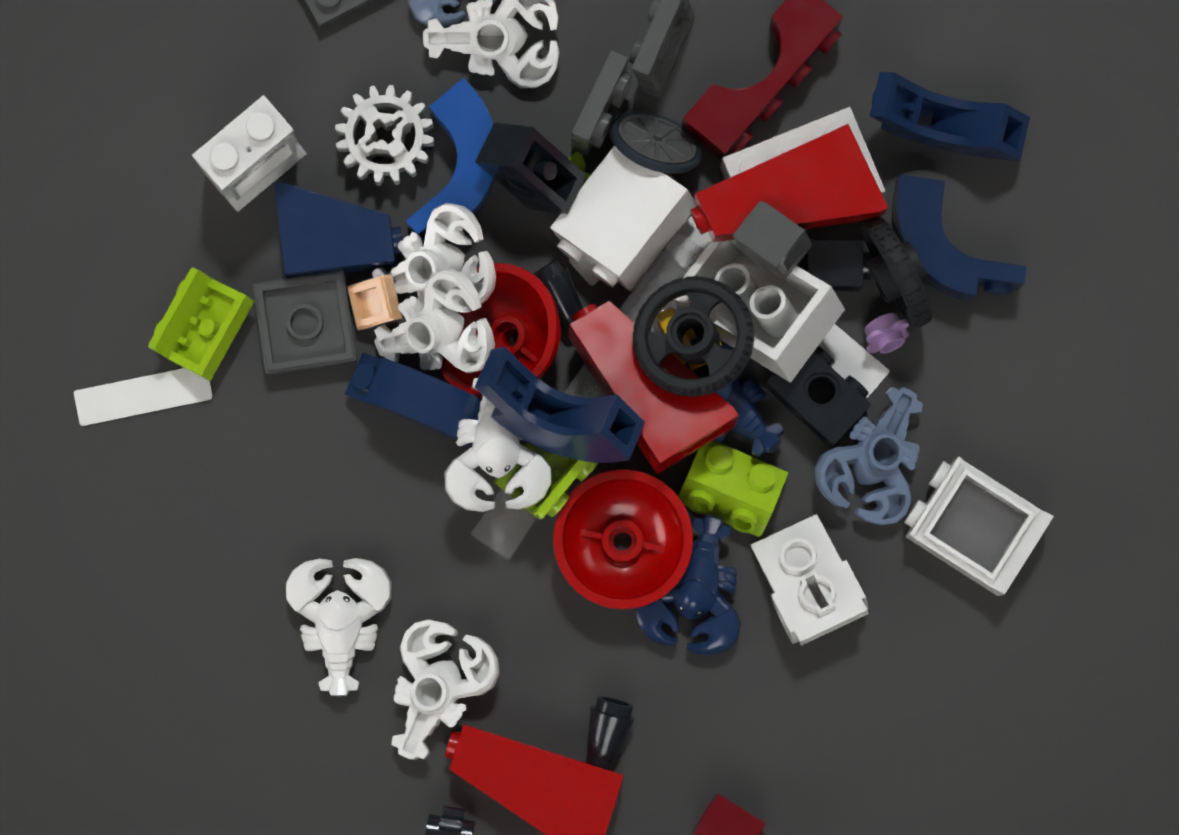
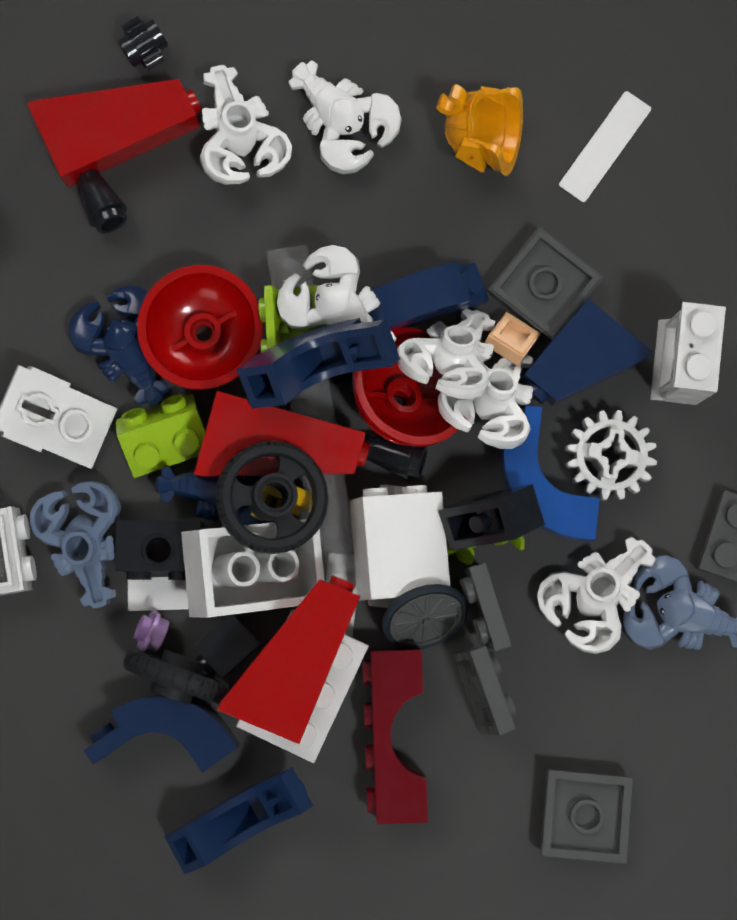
camera: 140 degrees right, 0 degrees up
(200, 324) = (612, 220): lime bracket -> none
(233, 495) = (484, 126): none -> light orange helmet
(772, 240) = (277, 612): dark grey panel -> none

